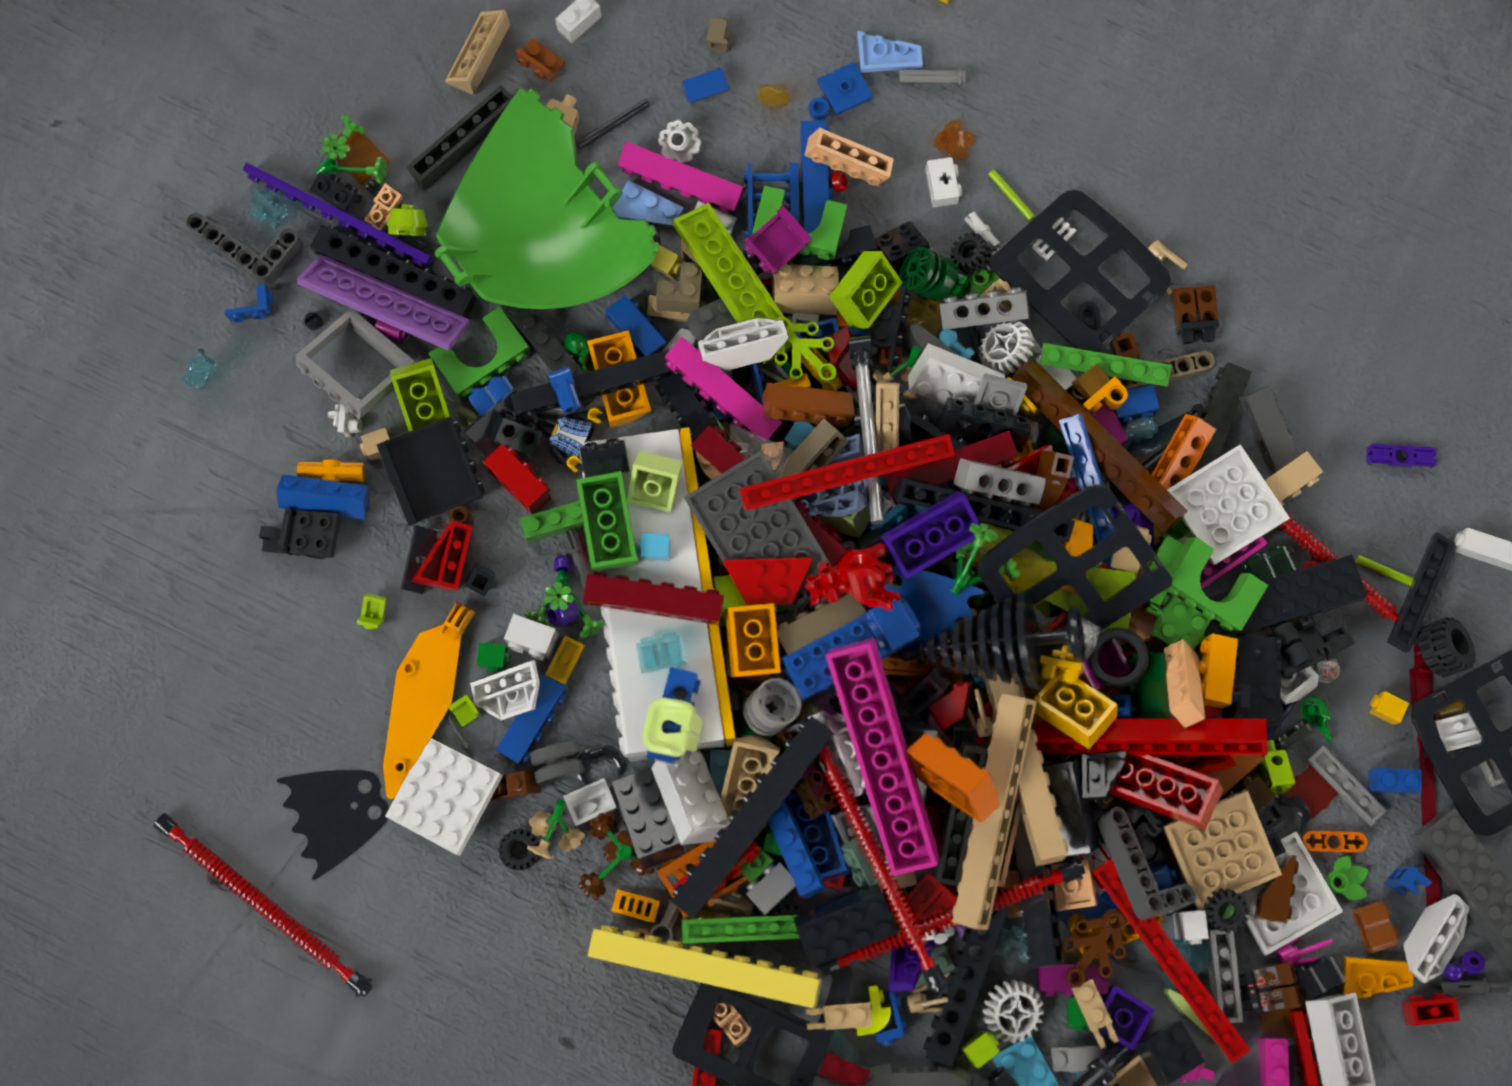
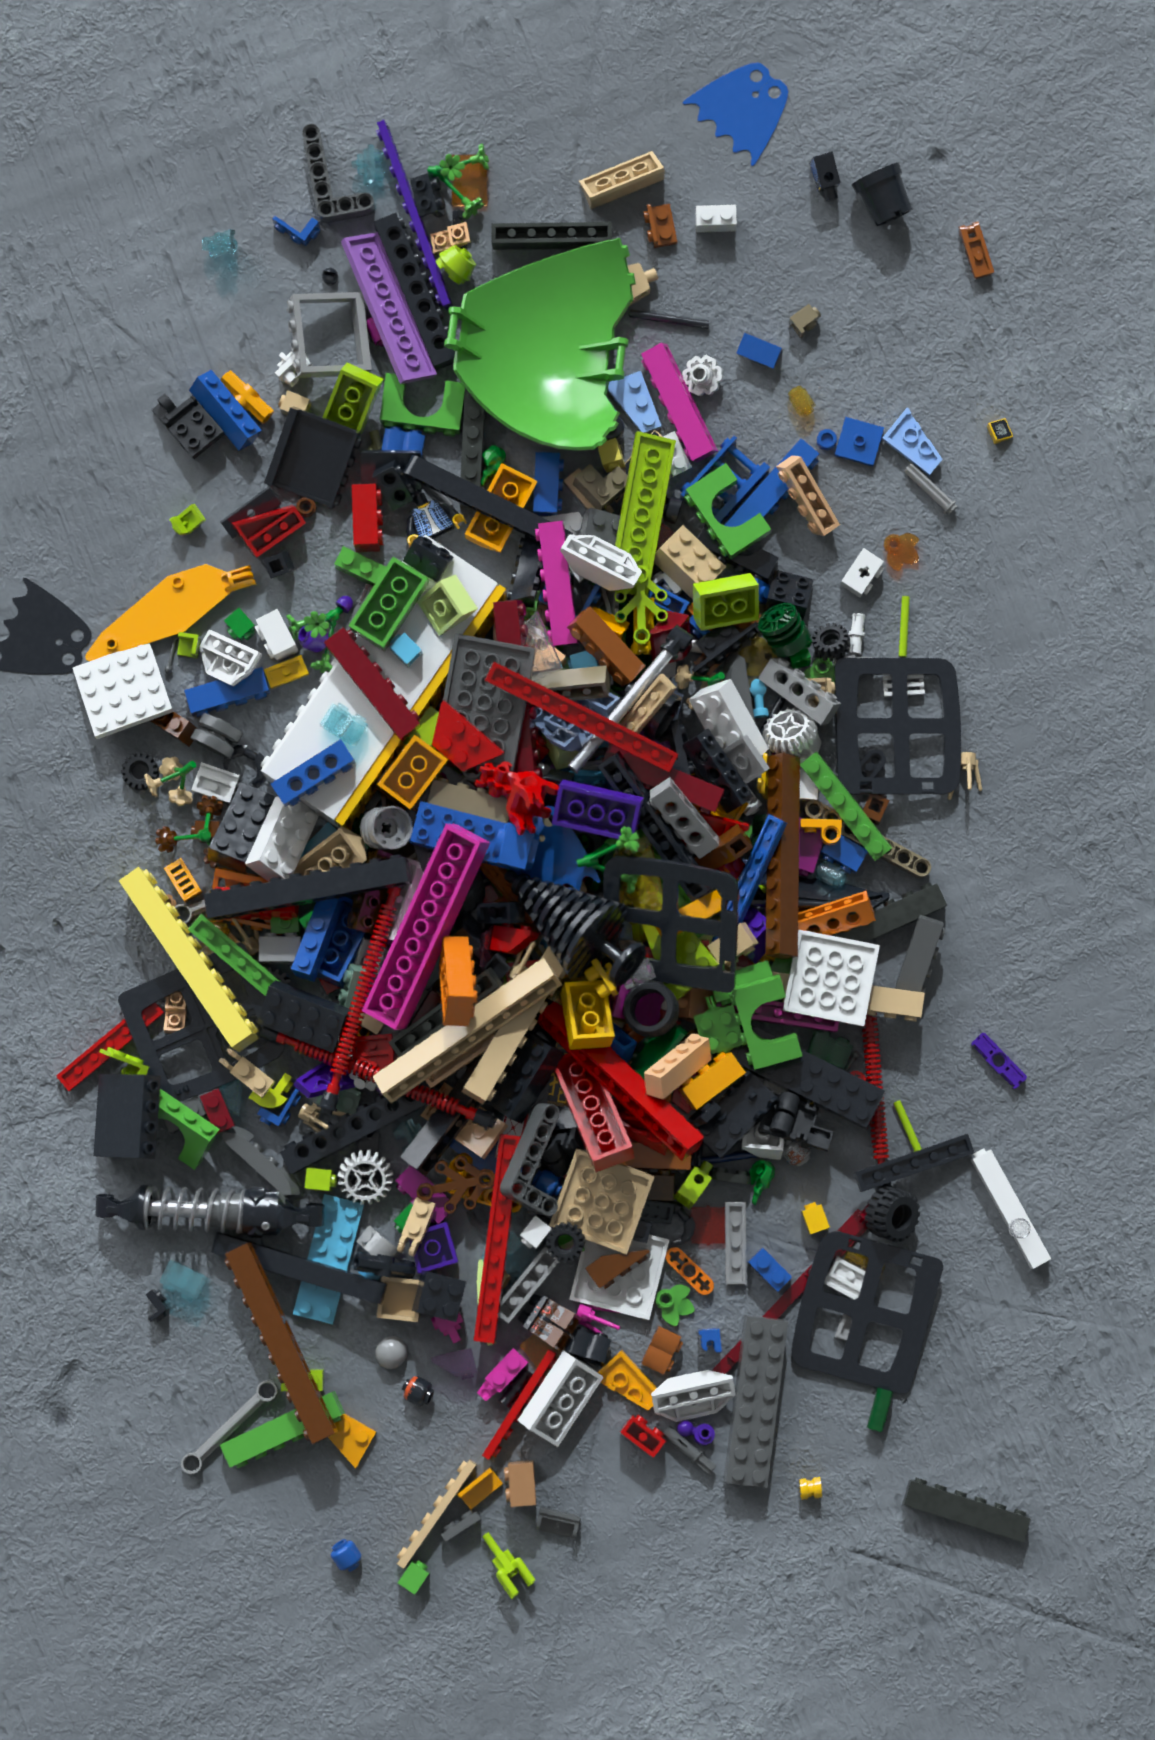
camera: 45 degrees right, 5 degrees up
(564, 386) = (452, 480): blue piece -> none
(673, 743) = (296, 792): yellowish green piece -> none
(777, 241) = (695, 512): magenta panel -> none
(839, 181) = (788, 507): red tile -> none
(1090, 381) = (823, 808): pearl gold panel -> none
(1101, 773) = (565, 1074): black wing -> none
(1195, 313) = (945, 833): reddish brown hips -> none

